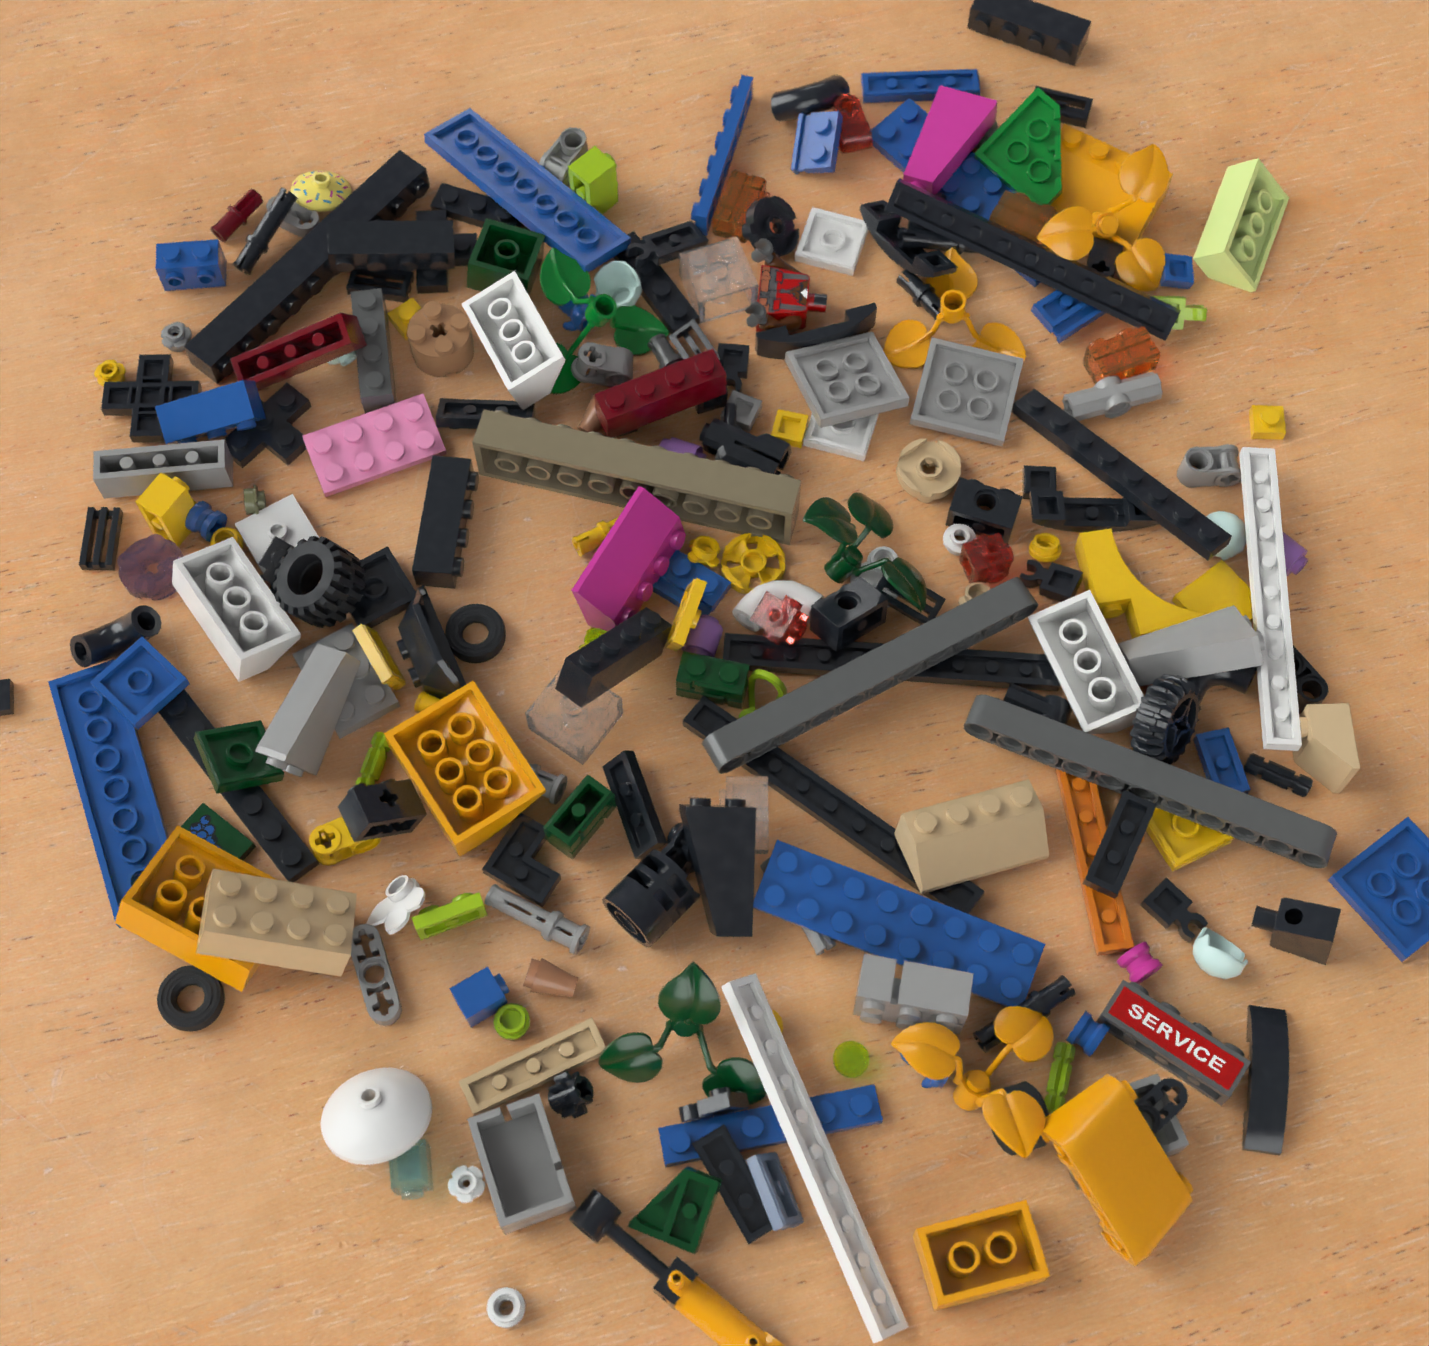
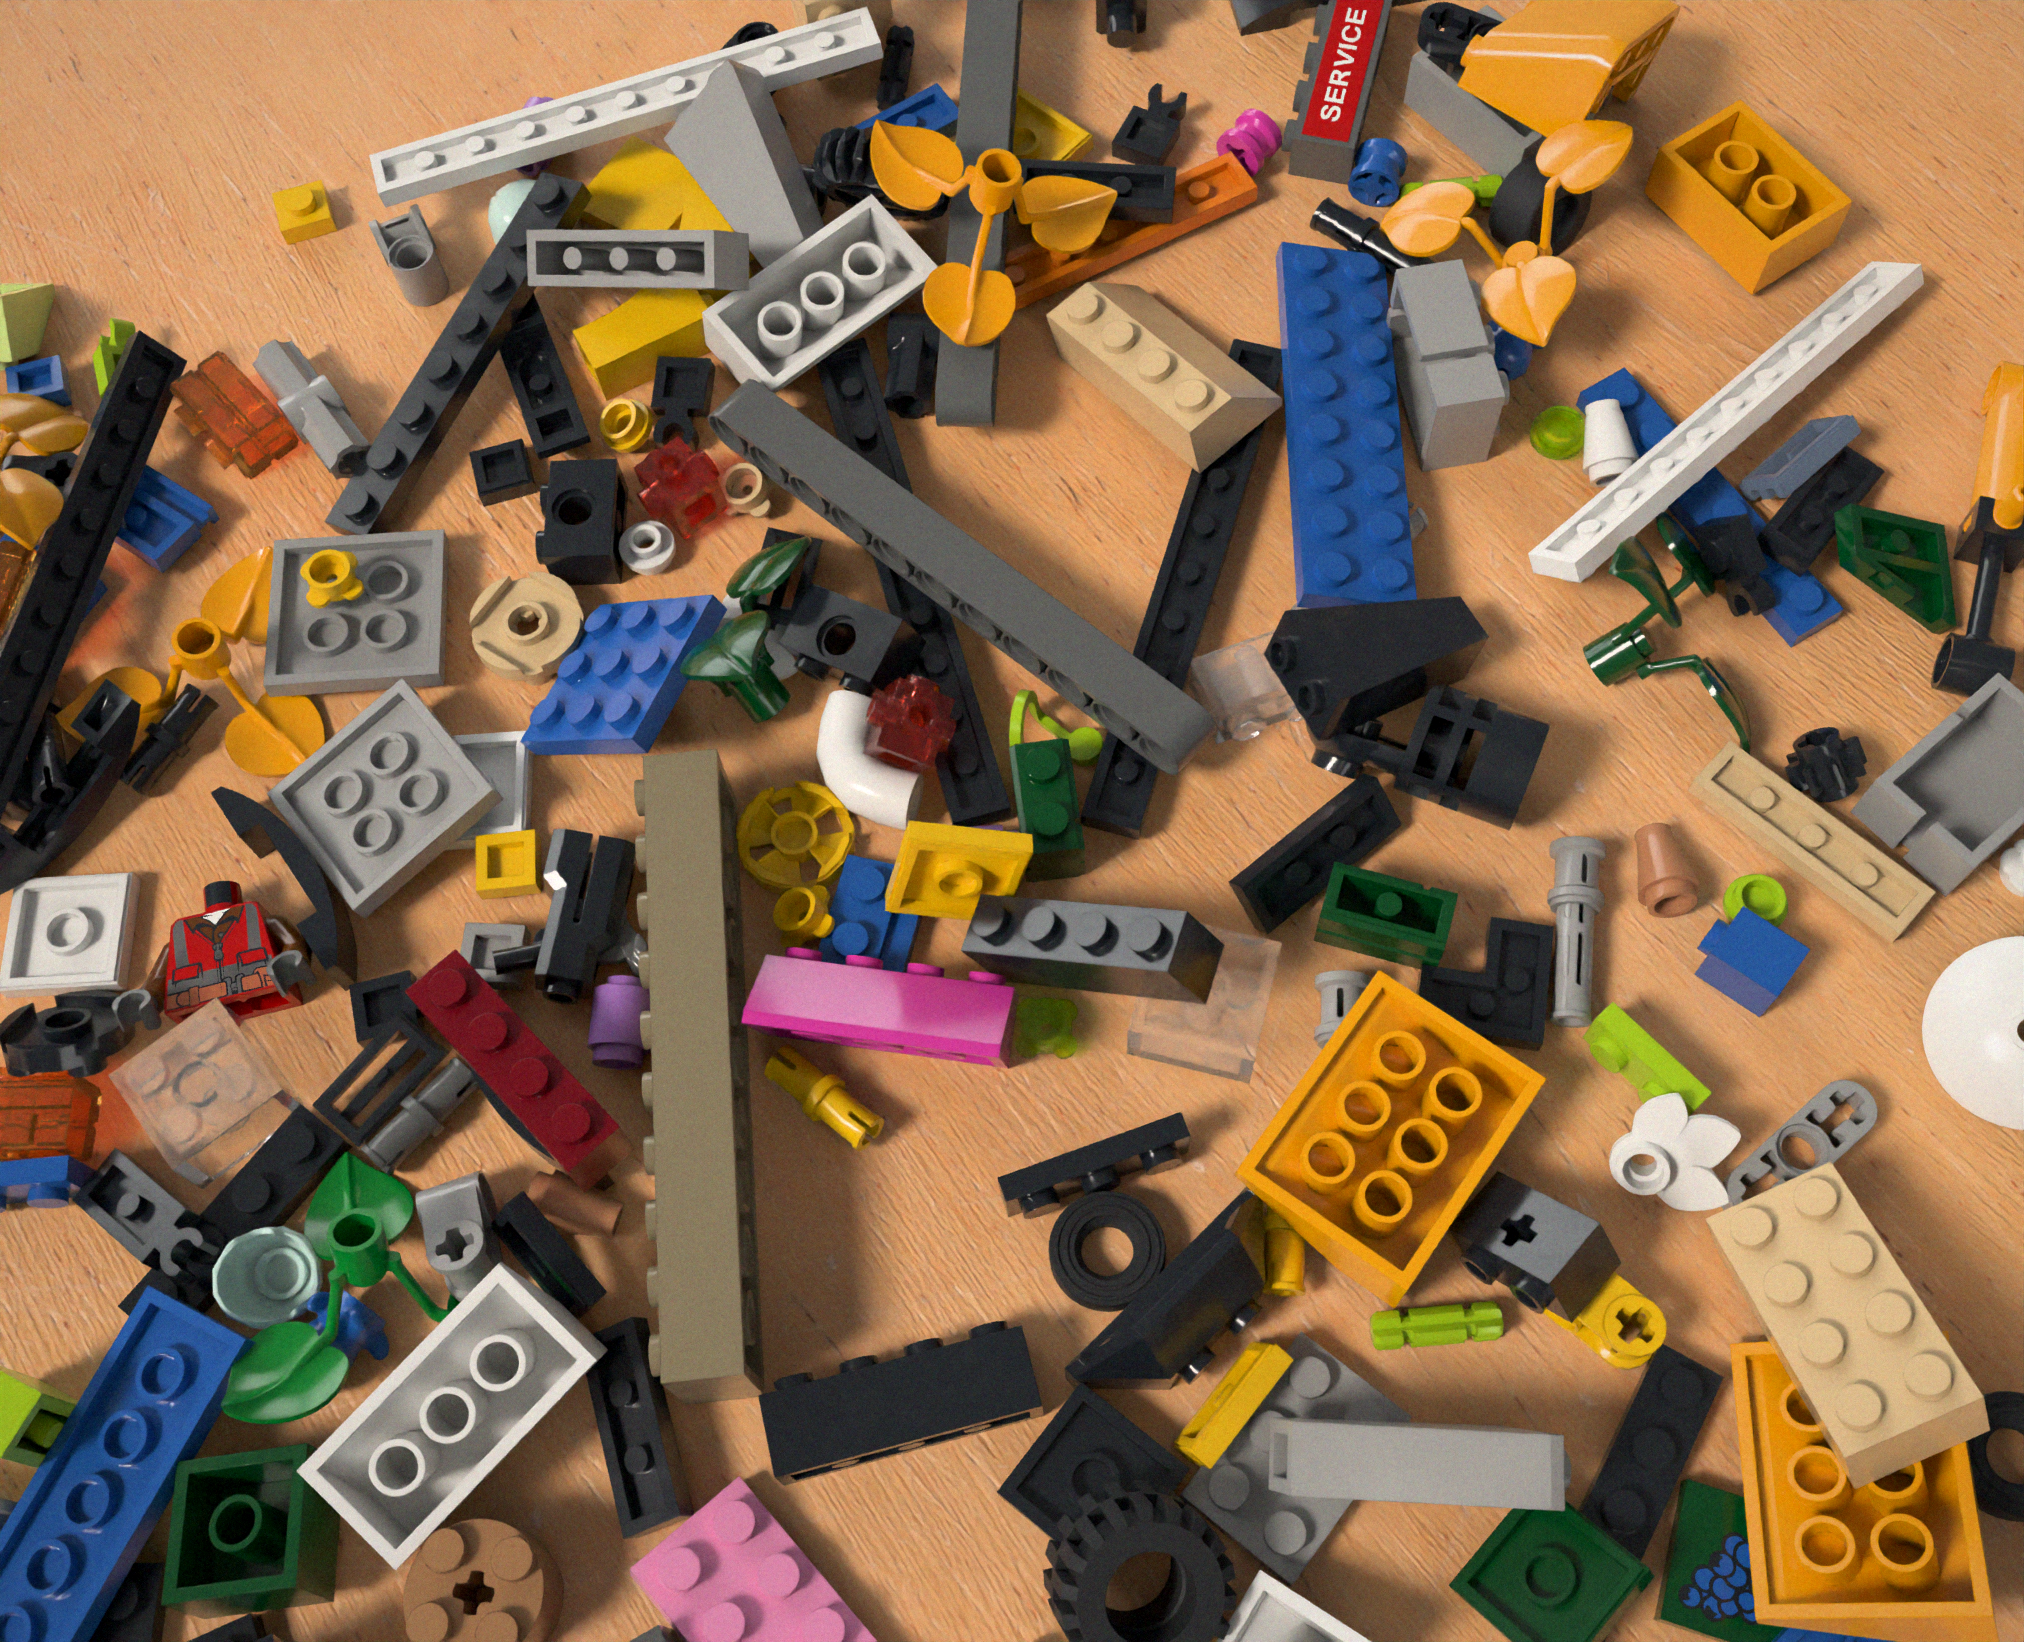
camera: 105 degrees left, 0 degrees up
(514, 638) = (1095, 1167): none -> black plate
(574, 394) = (547, 1256): none -> black tile
(826, 1077) = (1606, 443): none -> white cone
(870, 494) = (622, 677): none -> blue plate
(987, 370) = (326, 566): none -> yellow plate
(1133, 562) = (638, 259): none -> light grey brick
(1135, 714) = (1064, 212): none -> light orange plant
(1218, 955) = (1199, 64): light aqua hair -> none

